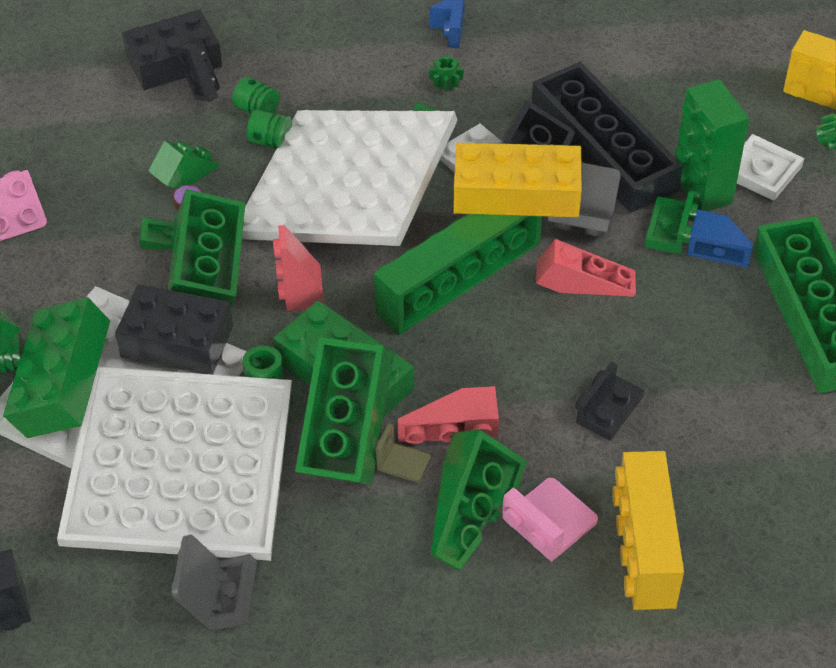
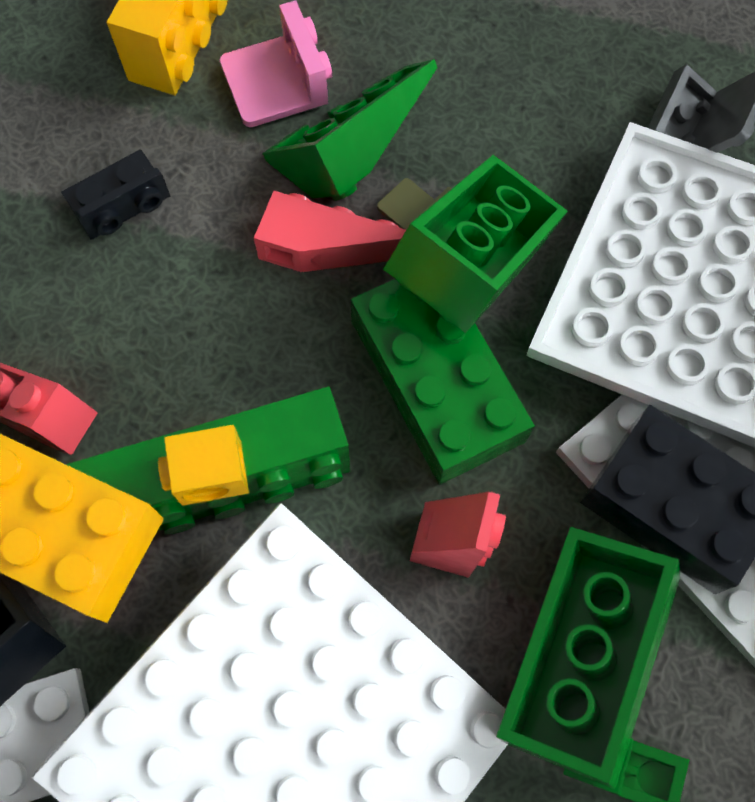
camera: 160 degrees left, 20 degrees up
(265, 366) = (559, 396): green piece -> none
(440, 227) = (204, 465): none -> yellow brick

